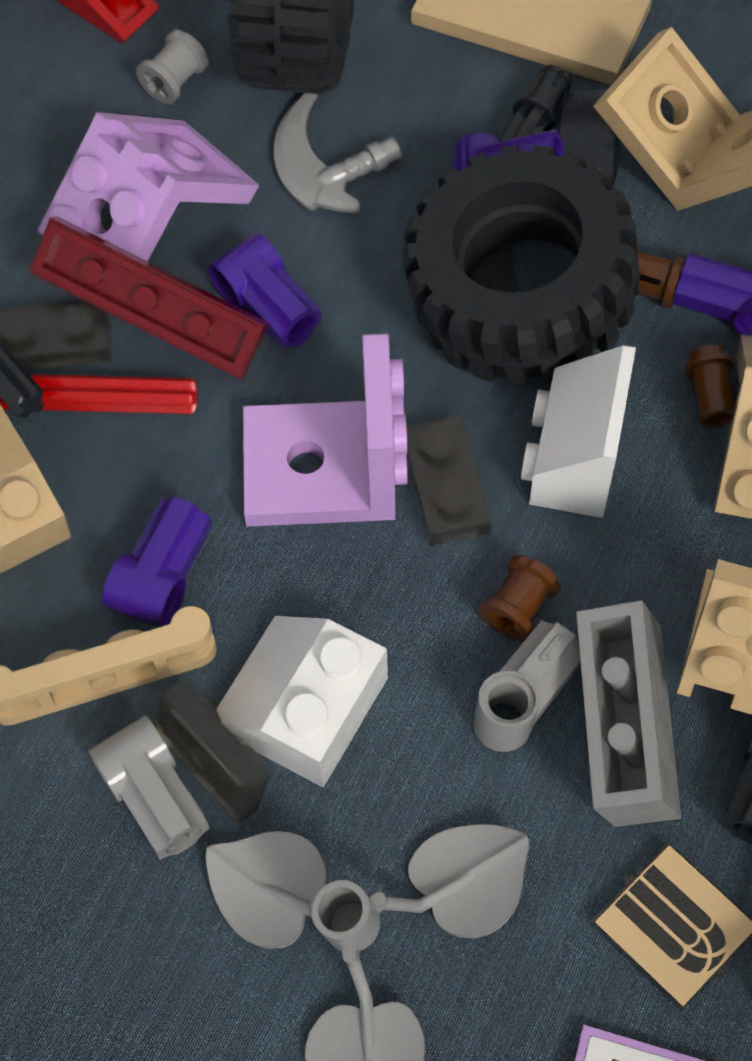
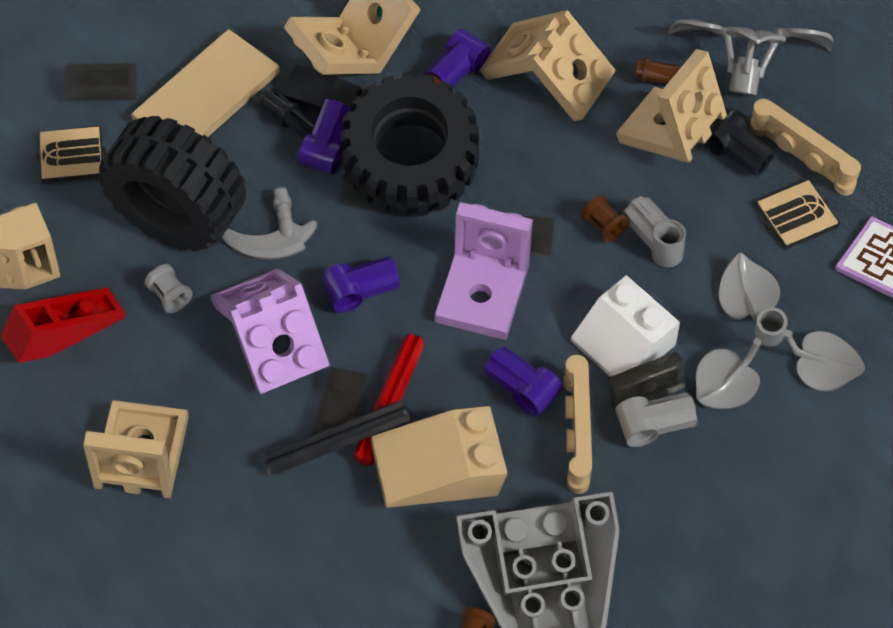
camera: 75 degrees left, 5 degrees down
(148, 297) = (347, 338): dark red tile -> none
(579, 433) = (524, 152): white slope -> none
(627, 715) = (692, 187): light grey brick -> none
(712, 384) = (507, 92): reddish brown pin -> none

